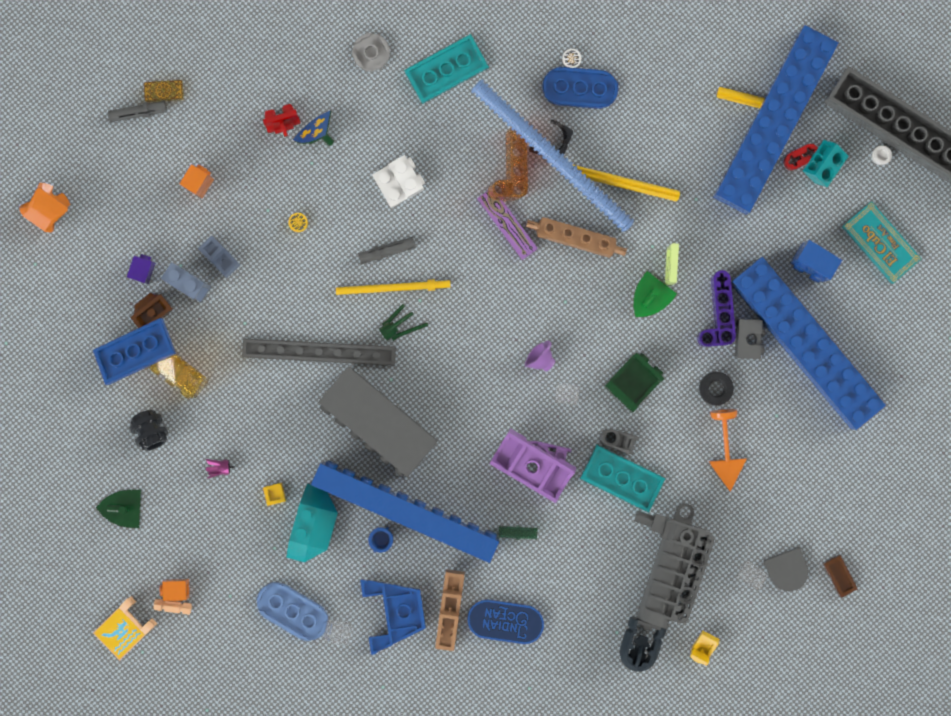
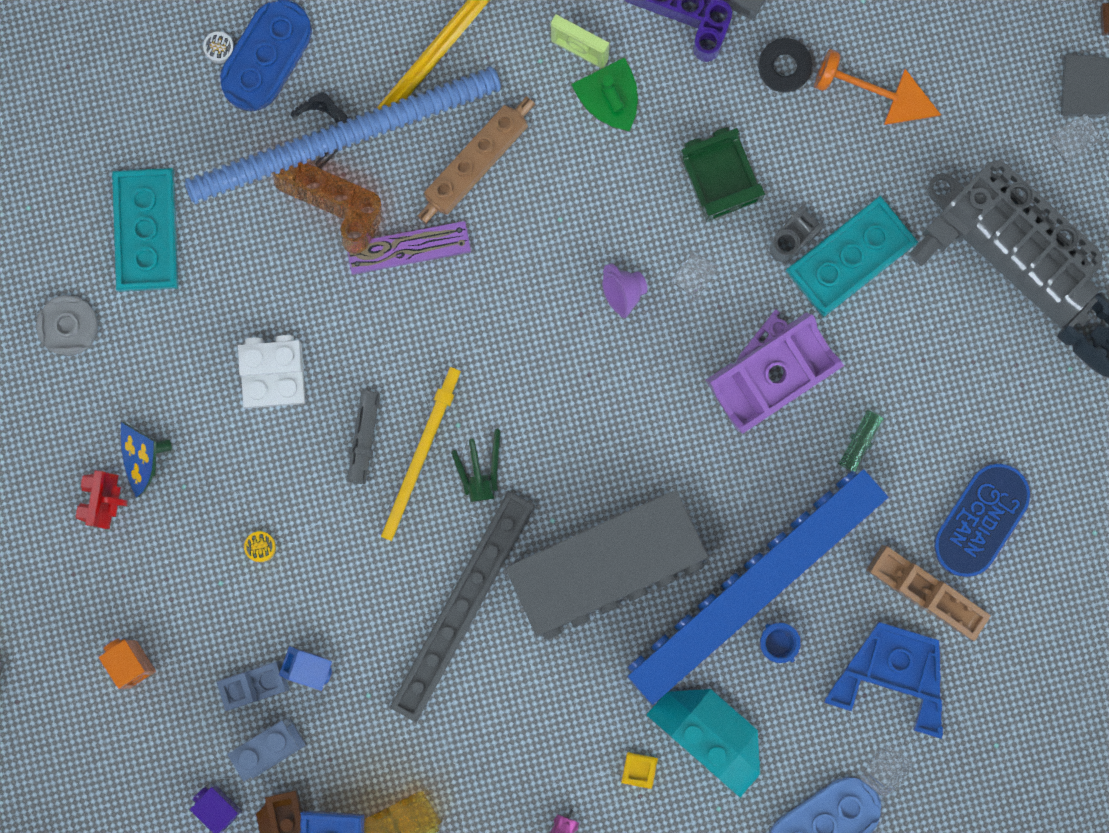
camera: 60 degrees left, 5 degrees down
(242, 281) = (306, 668): none -> brick

